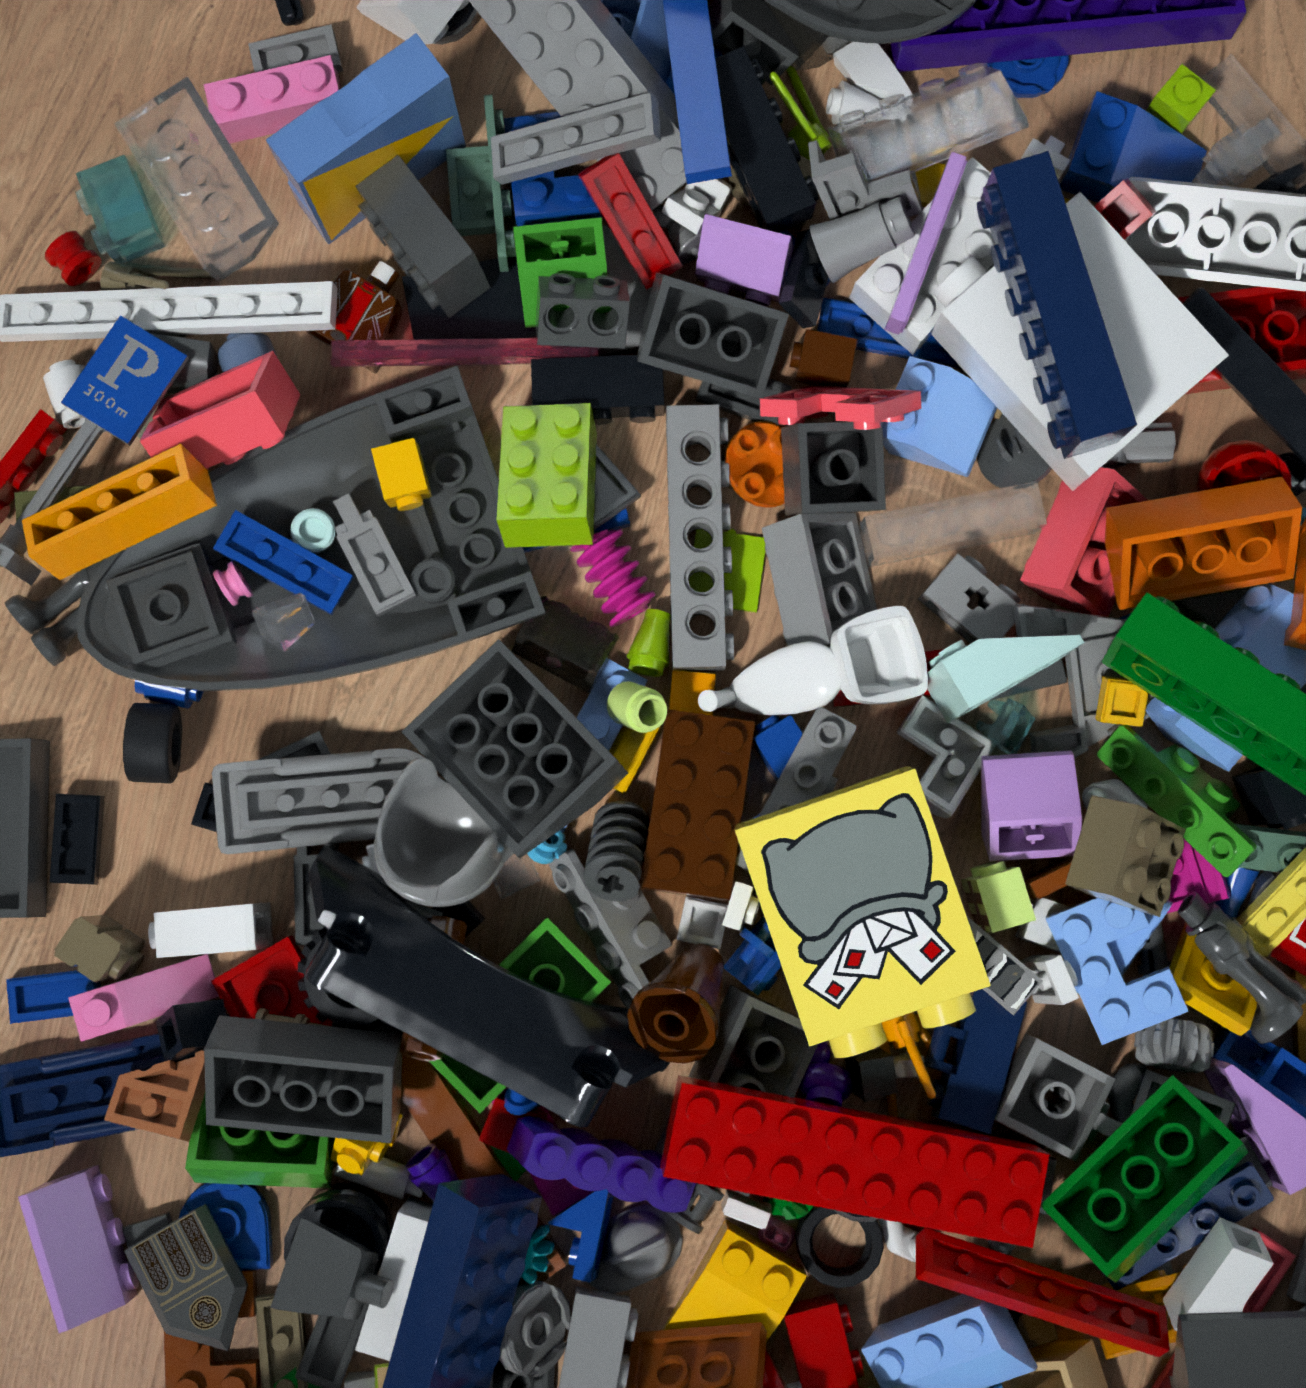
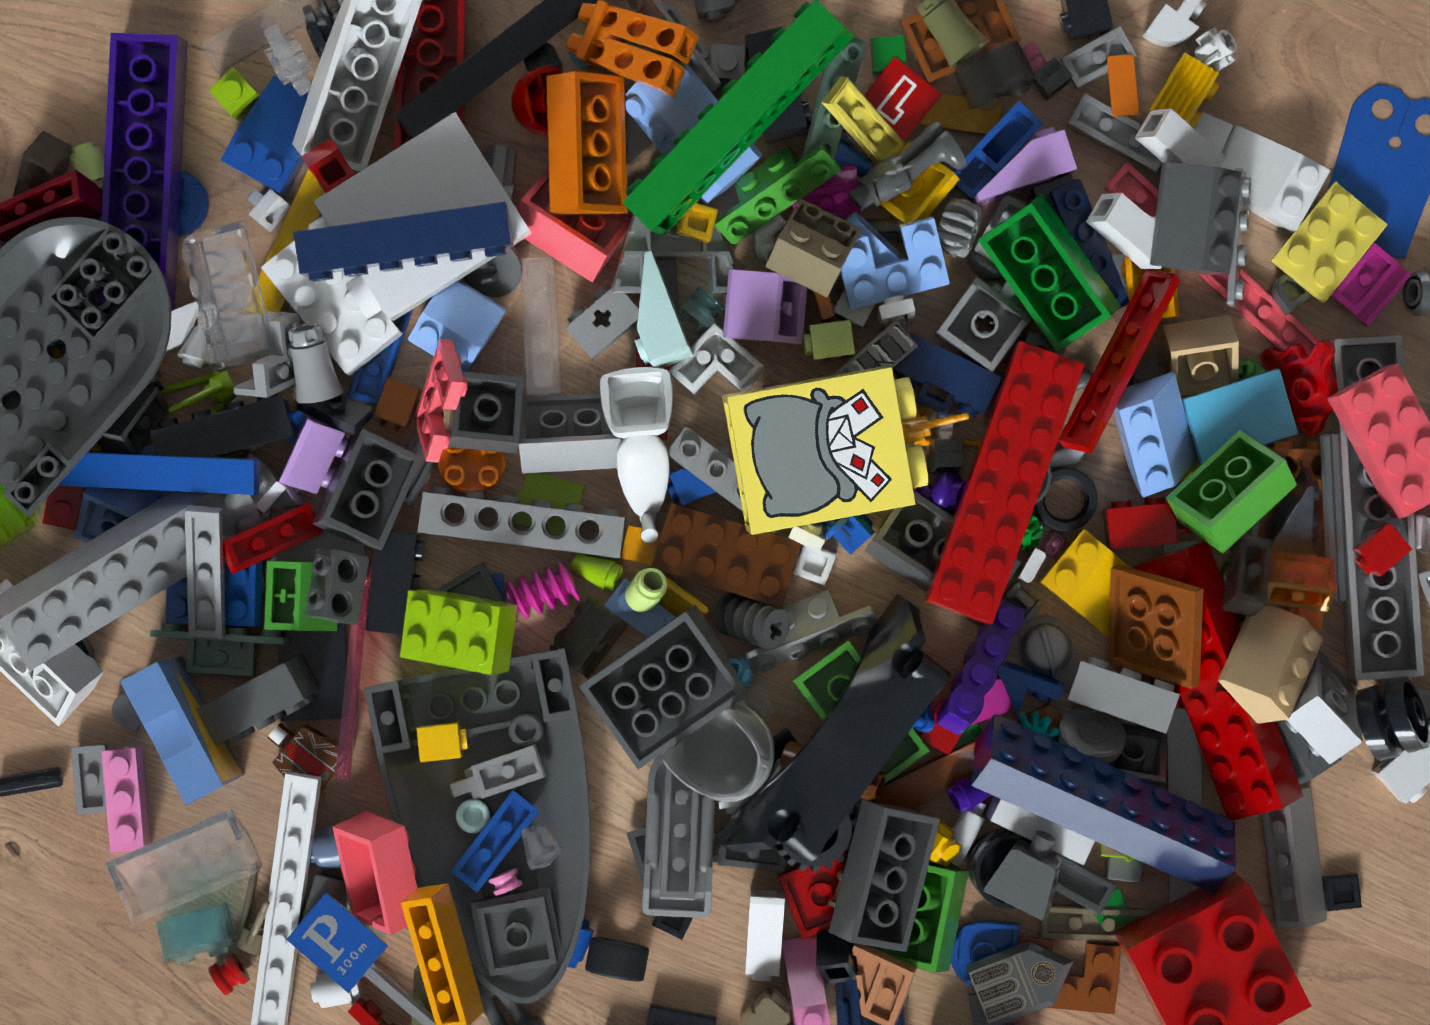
camera: 75 degrees left, 5 degrees up
(681, 1006) = (873, 591): reddish brown cone -> none
(926, 243) = (328, 317): lavender tile -> none

